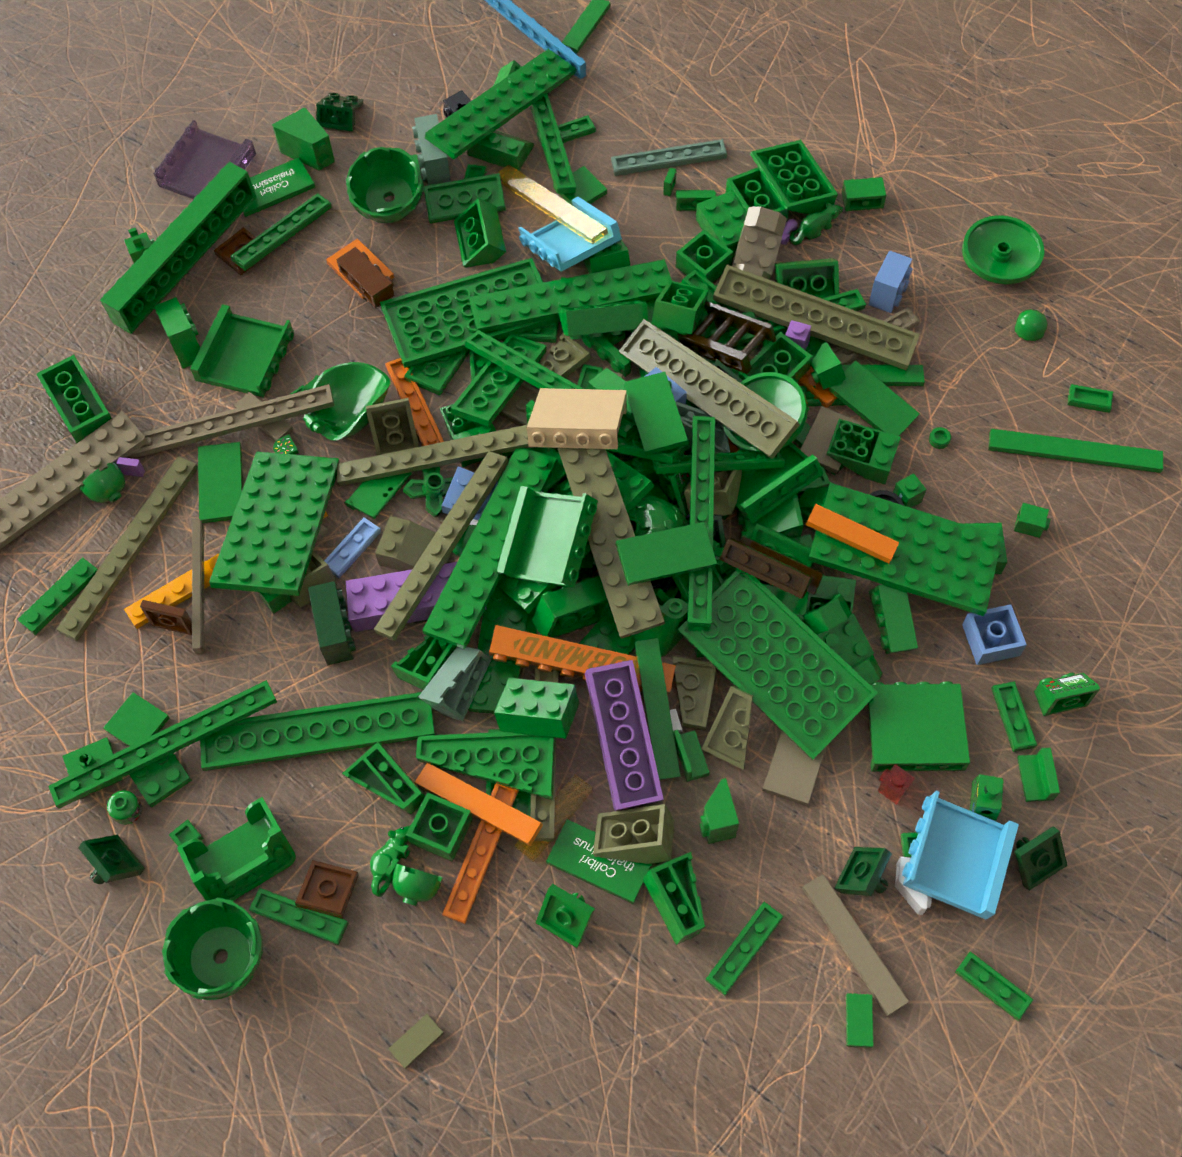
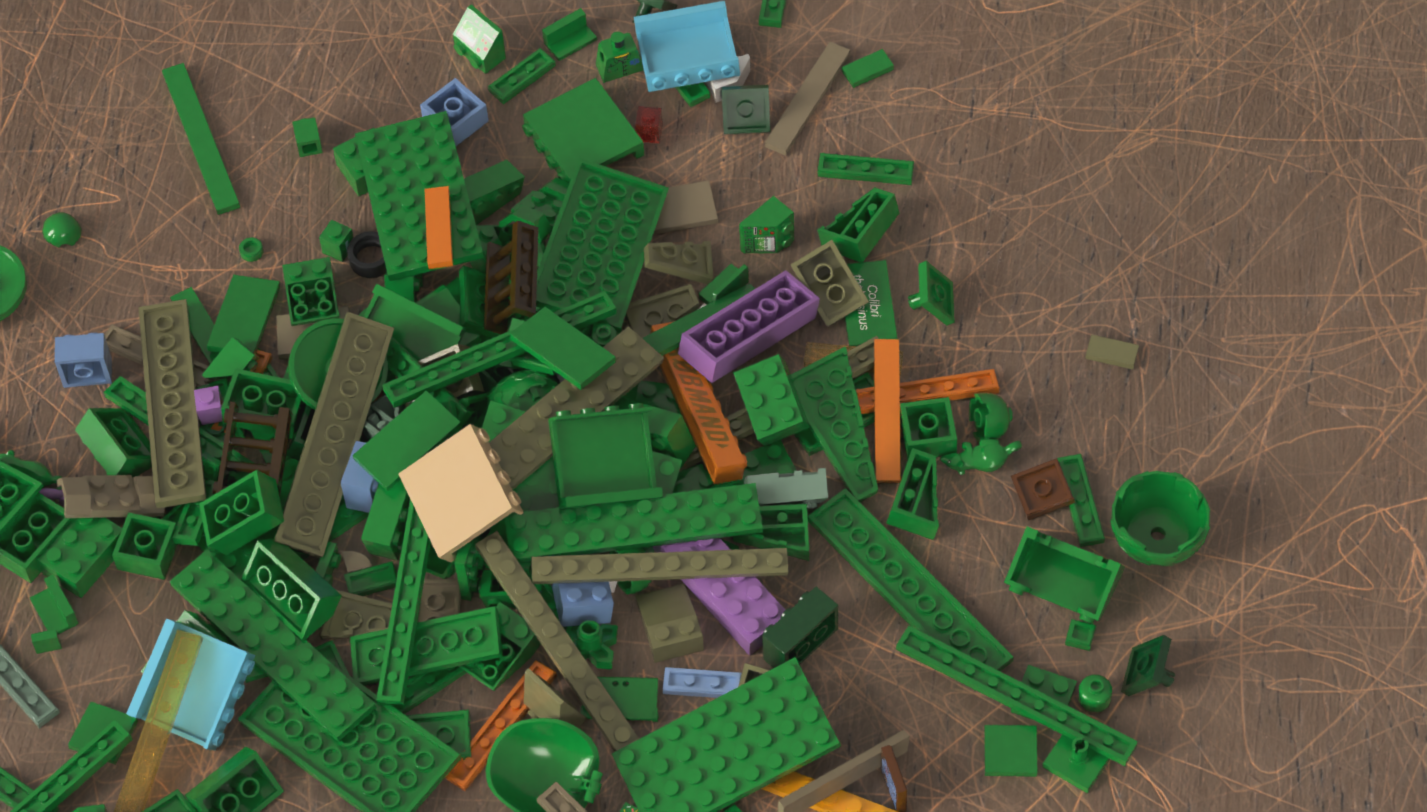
camera: 120 degrees left, 5 degrees down
(1090, 398) = (127, 150): green tile -> none

